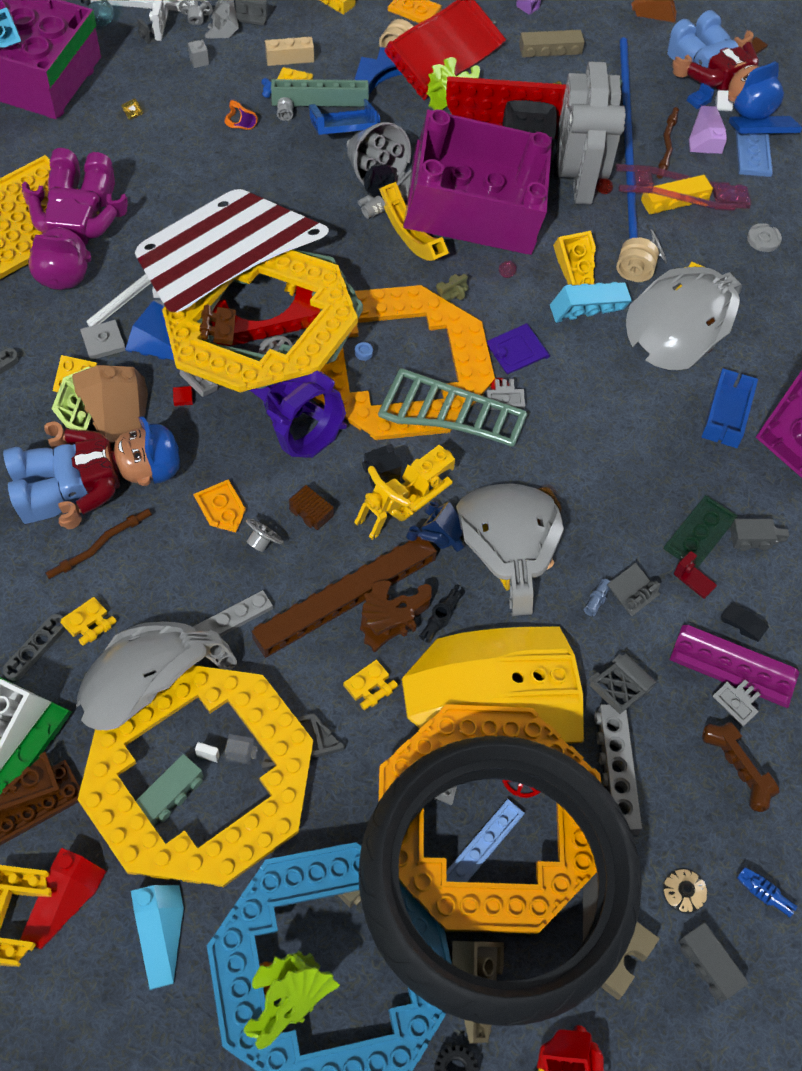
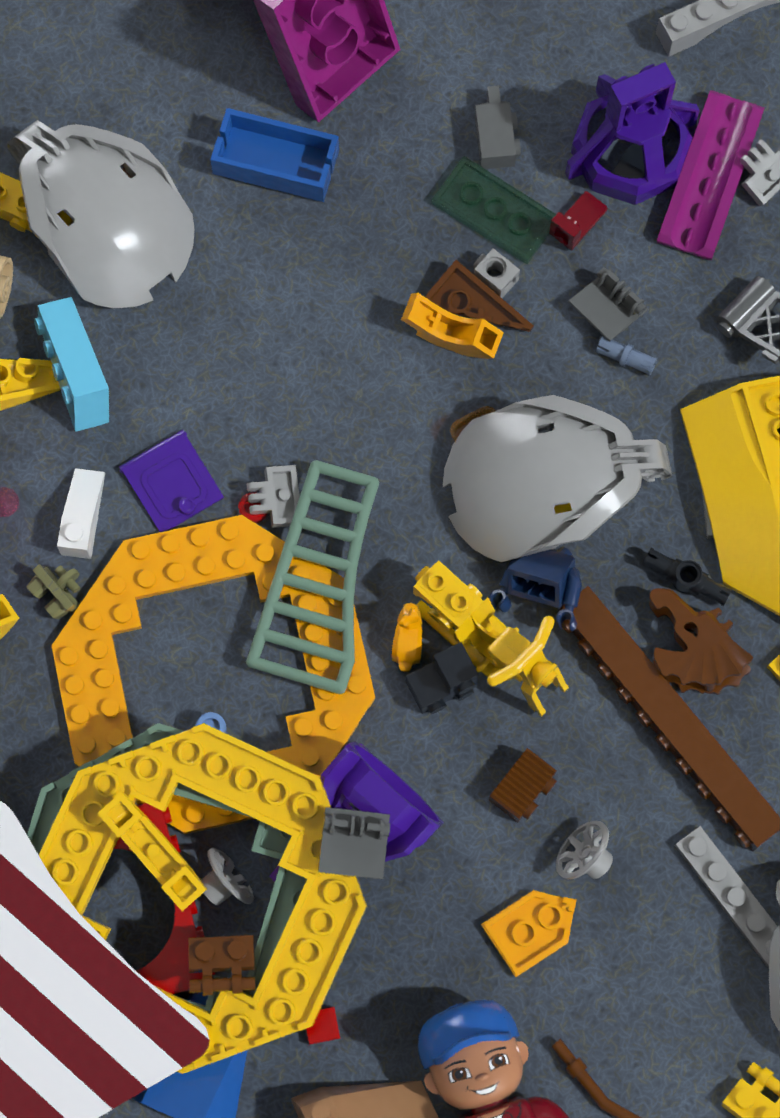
camera: 90 degrees left, 15 degrees up
(275, 379) = (354, 843): none -> dark grey hinge
(288, 293) = (153, 850): none -> yellow slope
(408, 452) = (408, 637): none -> light orange animal
(496, 301) = (81, 514): none -> white slope
(615, 491) = (455, 333): none -> light orange arch
(638, 508) = (468, 296): none -> reddish brown wing
(650, 530) = (494, 260): none -> light grey brick
(767, 592) = (638, 113): none -> dark purple plate

